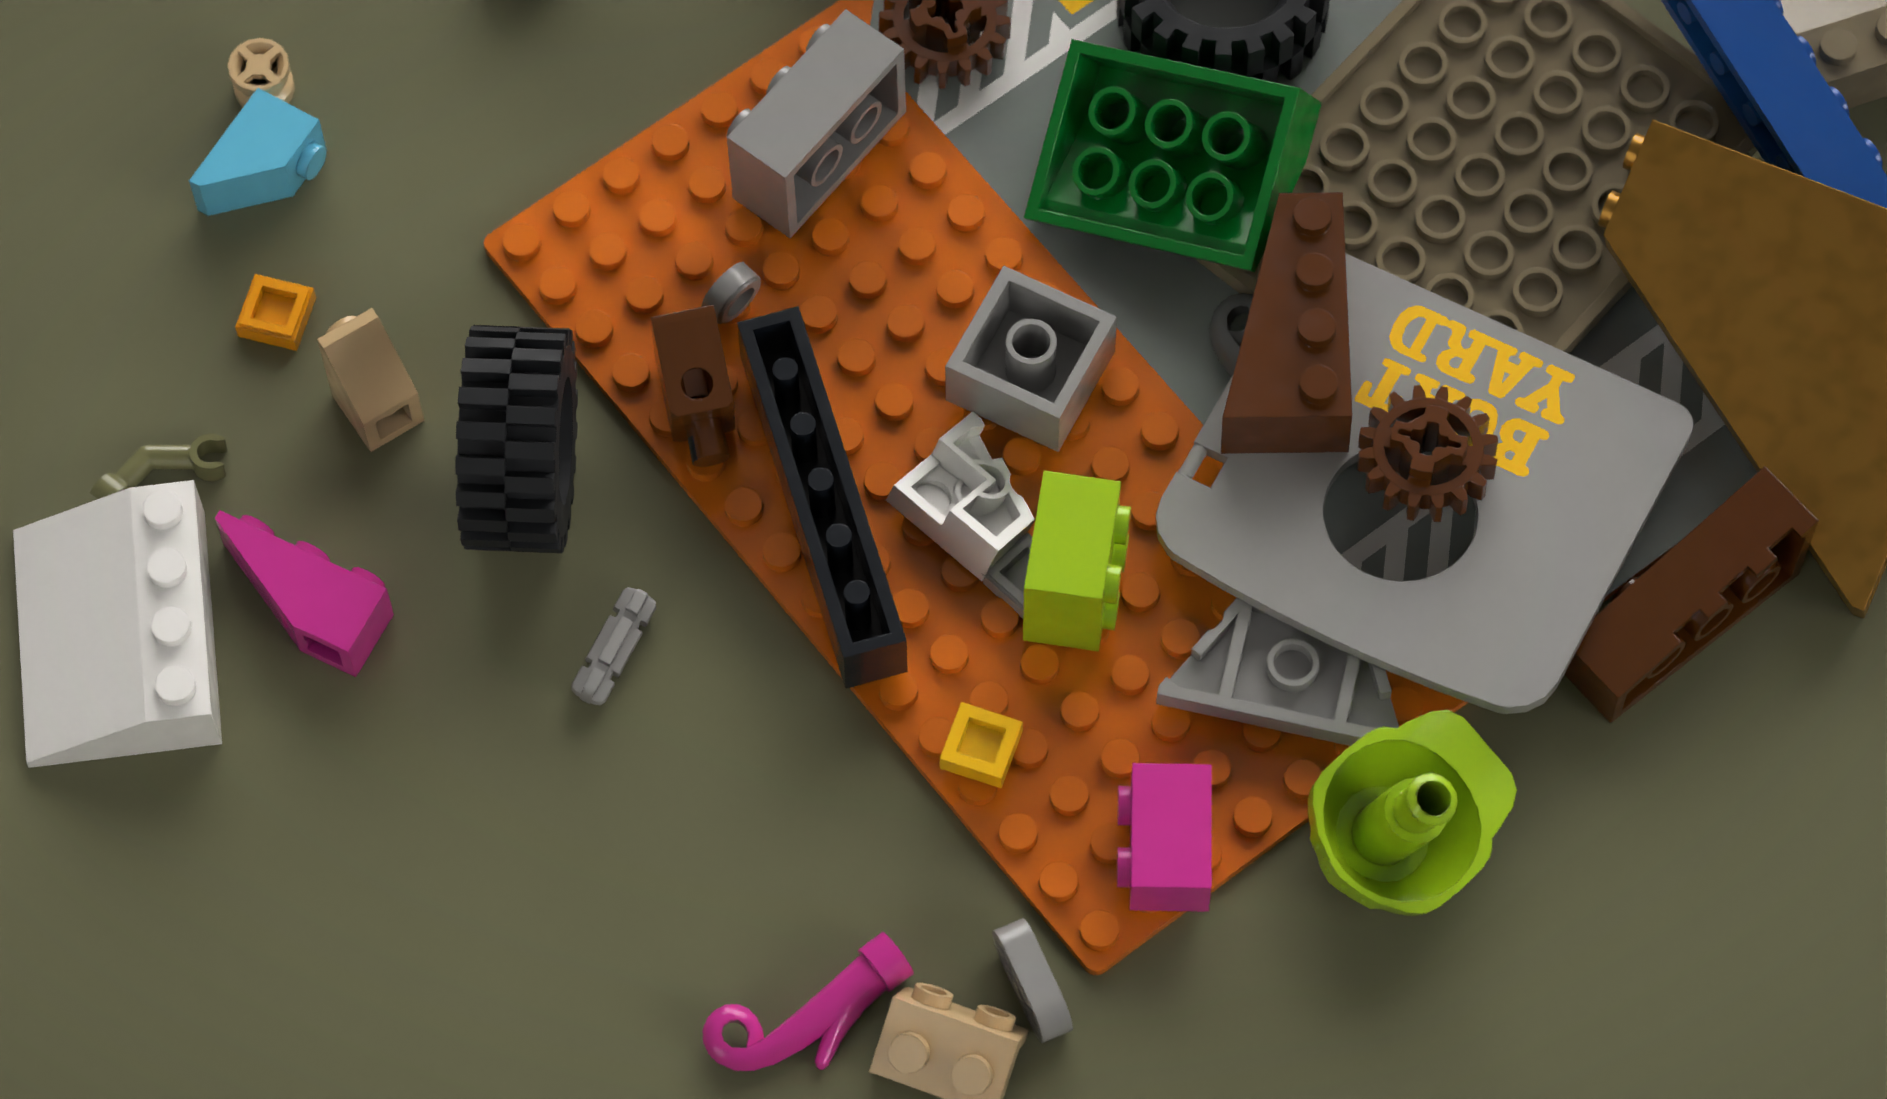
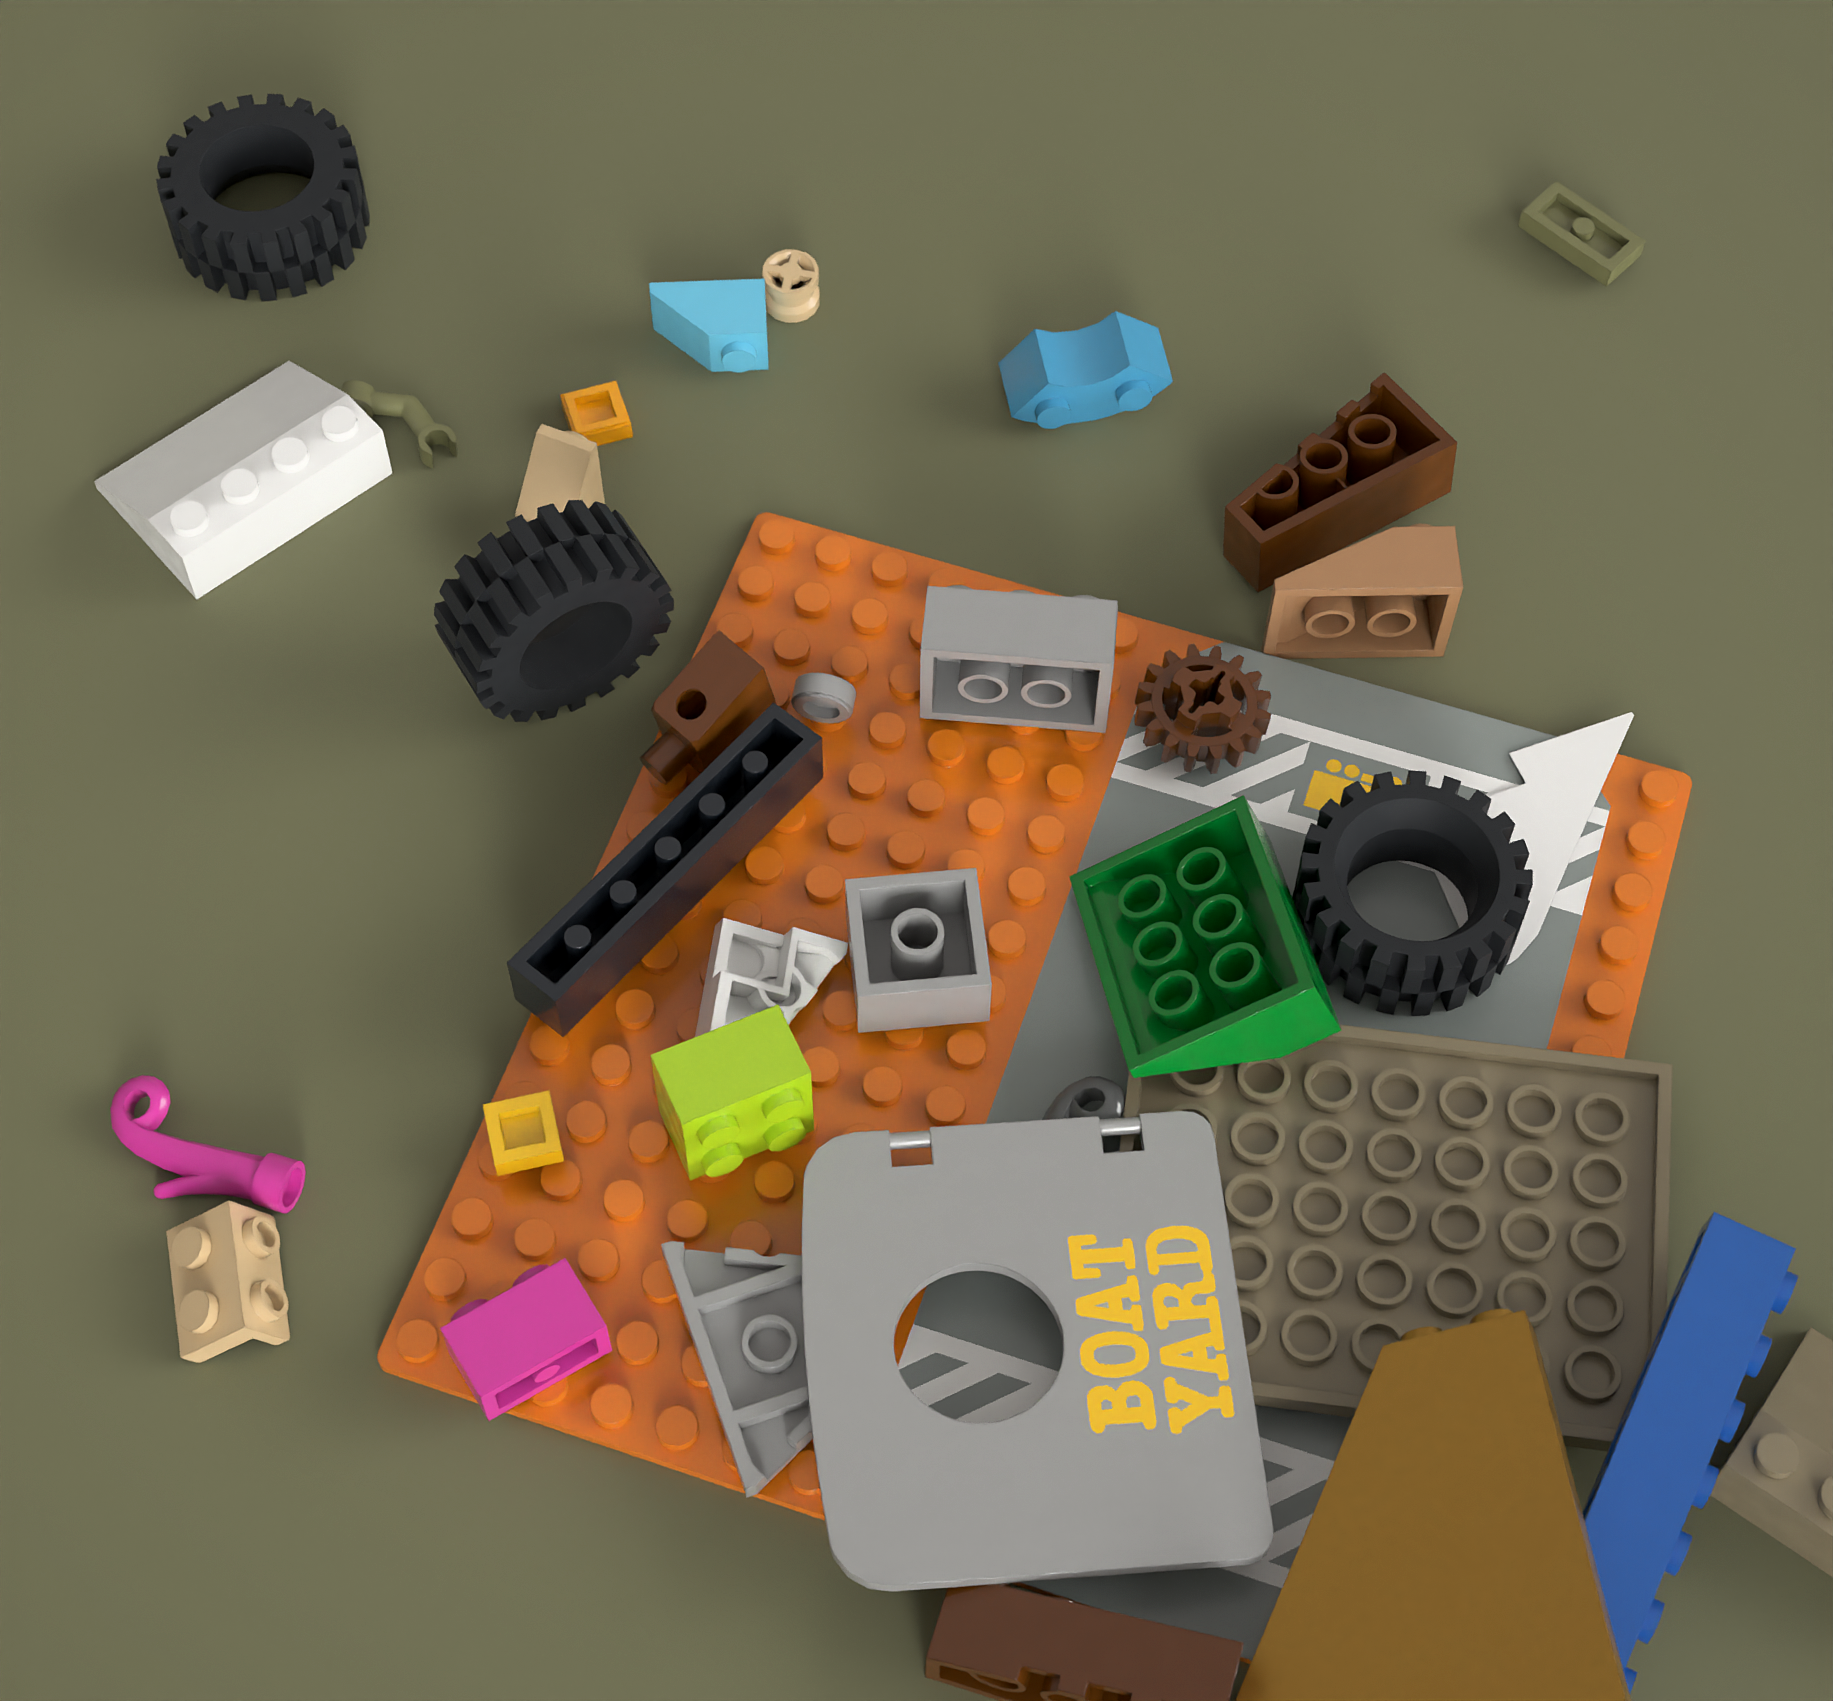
camera: 55 degrees right, 5 degrees down
(319, 604) = (344, 575): dark pink slope -> none
(613, 646) = (451, 810): light grey axle -> none
(1032, 980) = (328, 1311): light grey beam -> none
(1295, 350) = (1080, 1142): reddish brown wedge -> none
(1409, 813) = (675, 1532): lime piece -> none
(1433, 481) = (1022, 1346): reddish brown gear -> none

